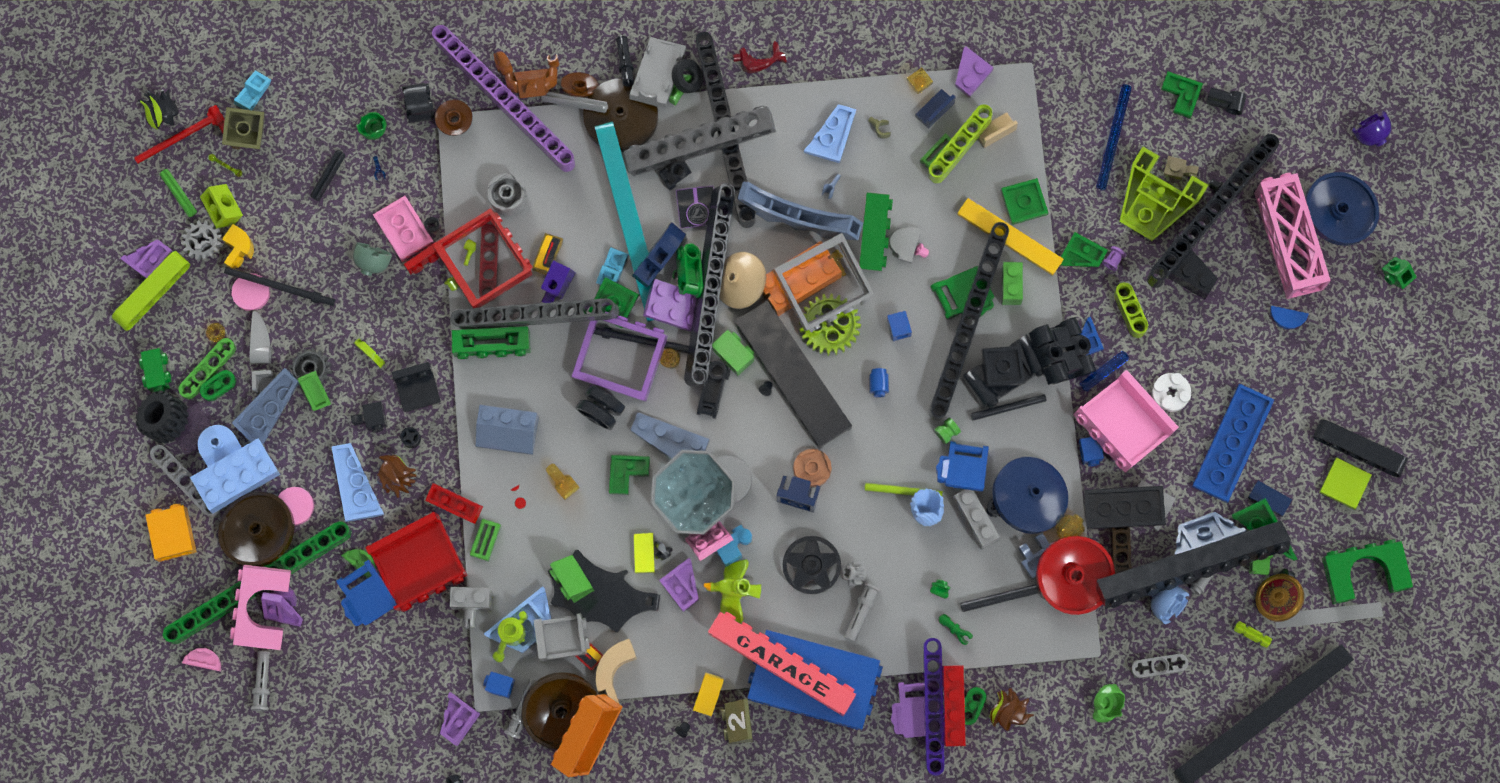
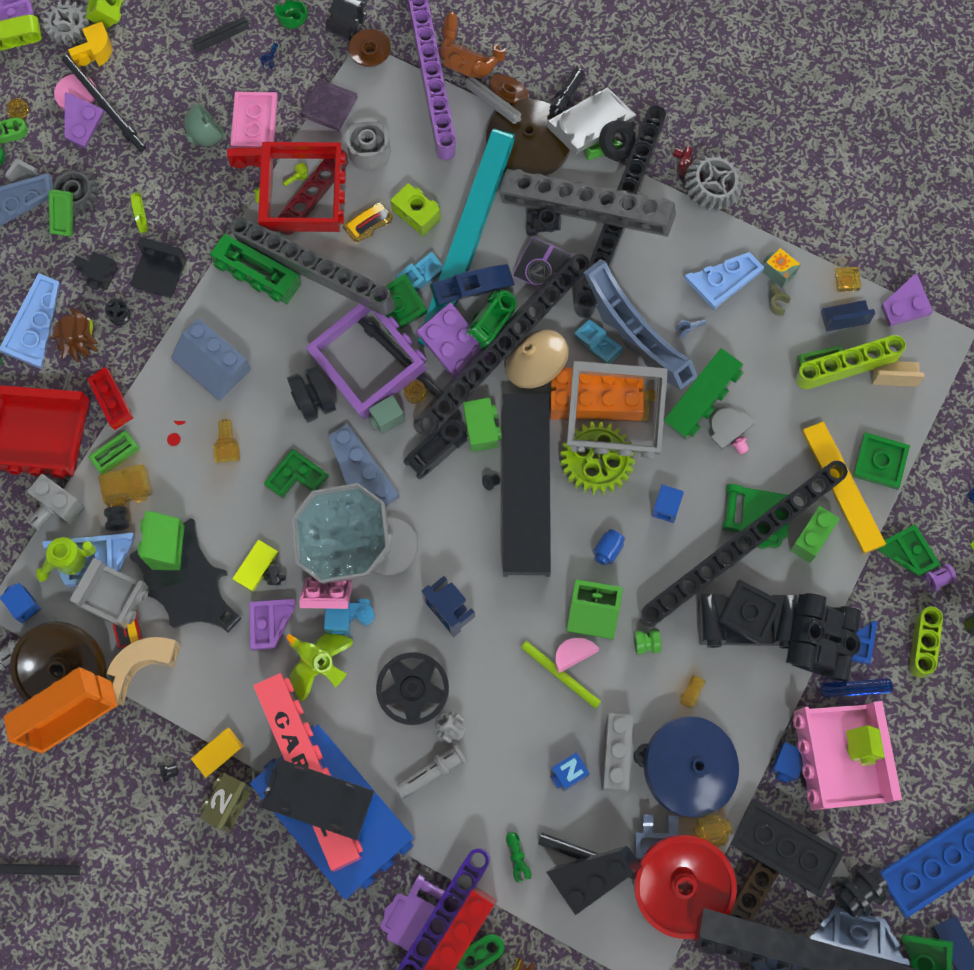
camera: 30 degrees right, 5 degrees down
(259, 341) = (45, 143): light grey piece -> none
(272, 310) = (80, 120): none -> medium lavender wing
(431, 220) = (282, 128): black hinge -> none
(454, 182) = (328, 105): none -> clear purple tile
(513, 557) = (125, 485): none -> clear yellow brick
(523, 584) = (116, 518): none -> black wheel
(556, 274) = (357, 250): dark purple torso -> none
(585, 229) = (420, 220): none -> lime brick
(661, 388) = (386, 415): none -> sand green brick
(766, 56) = (712, 189): none -> light grey gear
(774, 239) = (596, 342): none -> medium azure slope
(804, 675) = (317, 799): none -> black piece
(813, 466) = (483, 590): nougat tile -> none
(867, 101) = (780, 267): none -> brick
(898, 431) = (594, 609): none -> bright green slope
(902, 470) = (573, 652): none -> bright pink tile
(927, 507) = (572, 707): light blue hair -> none
(940, 588) = (529, 803): green plate -> none
(952, 551) = (569, 772): none -> blue brick
(962, 470) = (636, 693): blue piece -> none
(998, 444) = (692, 692): none -> clear yellow pin
(1008, 407) = (728, 659): black bar -> none
(1013, 608) = (592, 877): none -> black wedge
(1133, 406) = (865, 745): none -> lime brick
(1172, 381) = (927, 748): white plate -> none
(1188, 503) = (861, 890): none -> black piece

